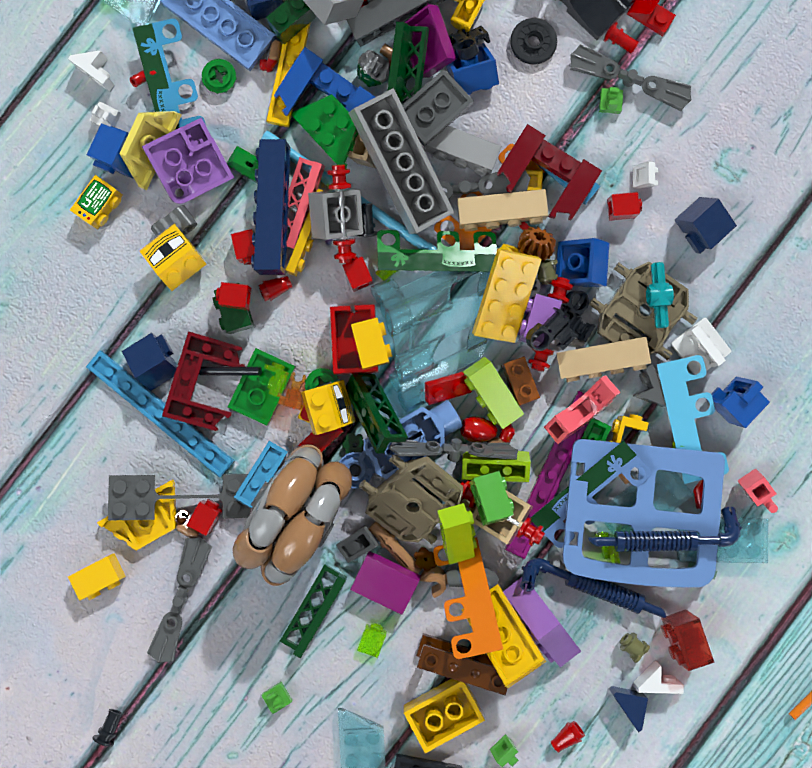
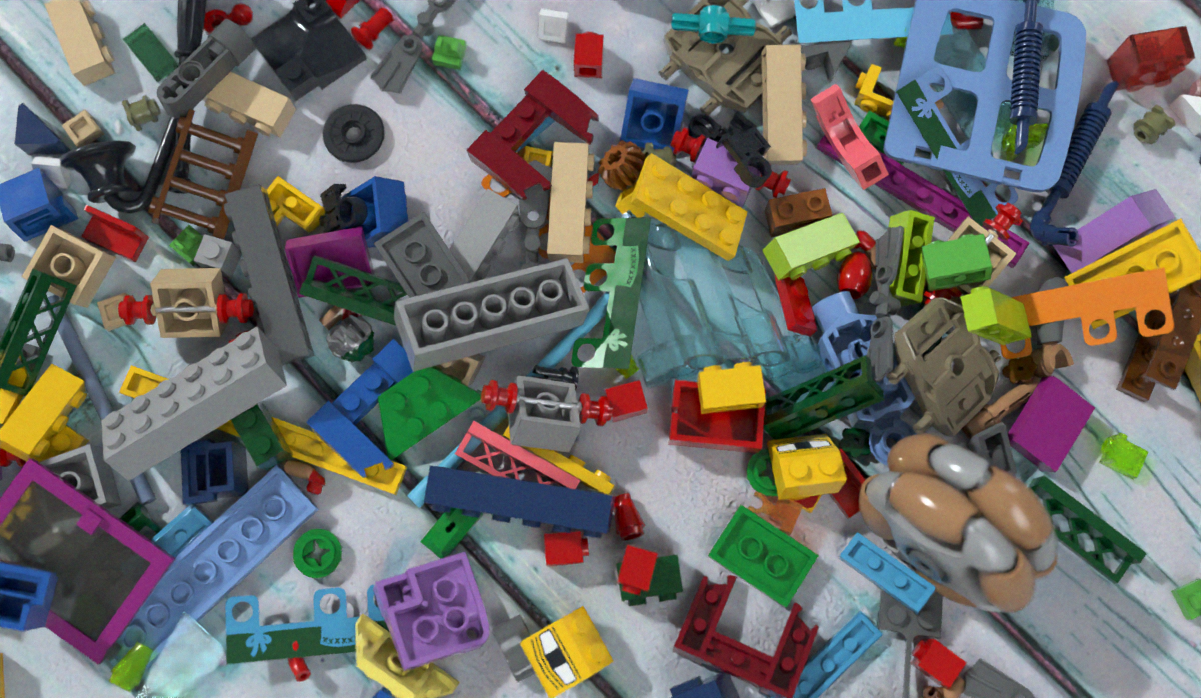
camera: 80 degrees left, 10 degrees down
(231, 371) = (736, 593): black bar -> none
(277, 383) = (764, 529): clear neon green bracket -> none

